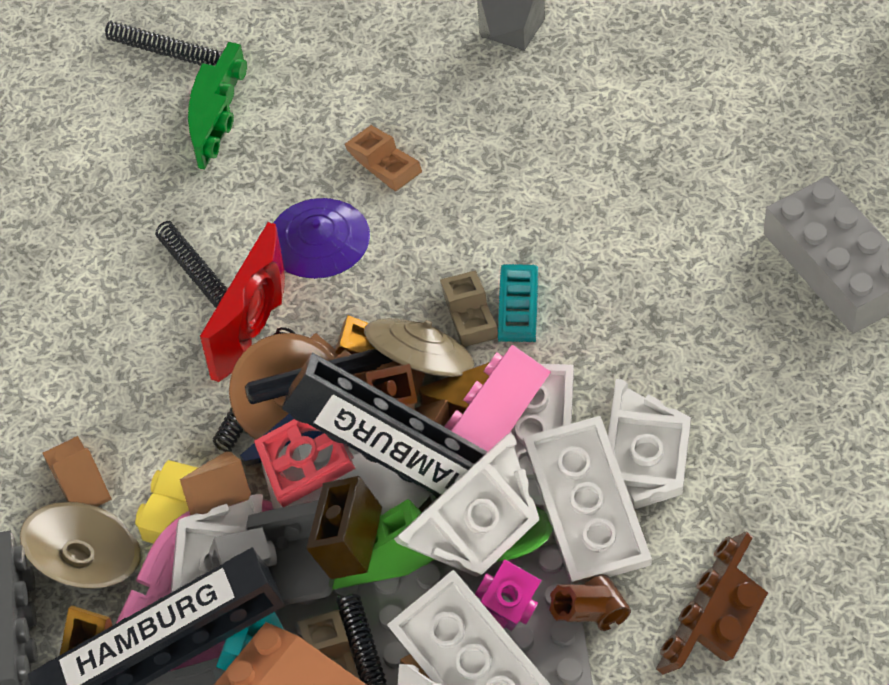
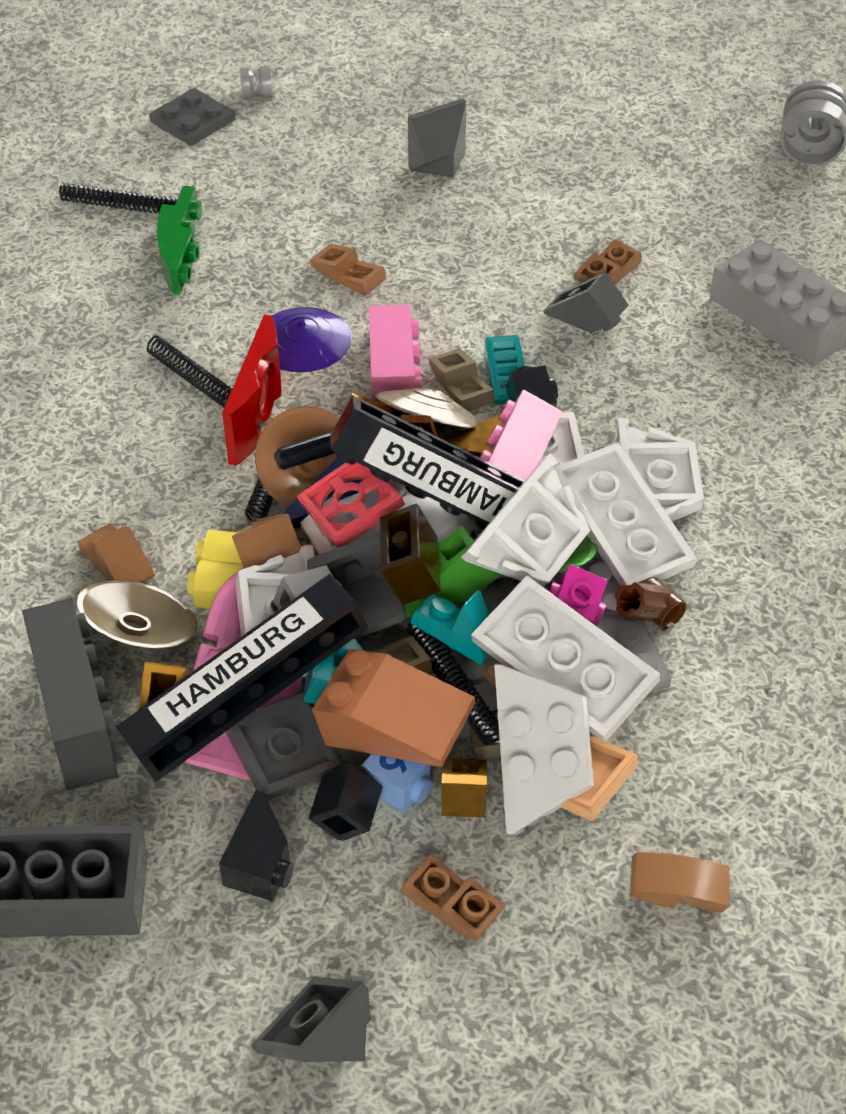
camera: 15 degrees left, 5 degrees down
(377, 602) = (451, 625): none -> teal slope
(403, 268) = (393, 349): none -> bright pink brick
(536, 334) = (533, 380): none -> black brick
(624, 234) = (589, 305): none -> dark grey slope
(656, 189) = (615, 260): none -> medium nougat slope
(720, 610) = (767, 596): reddish brown bracket -> none

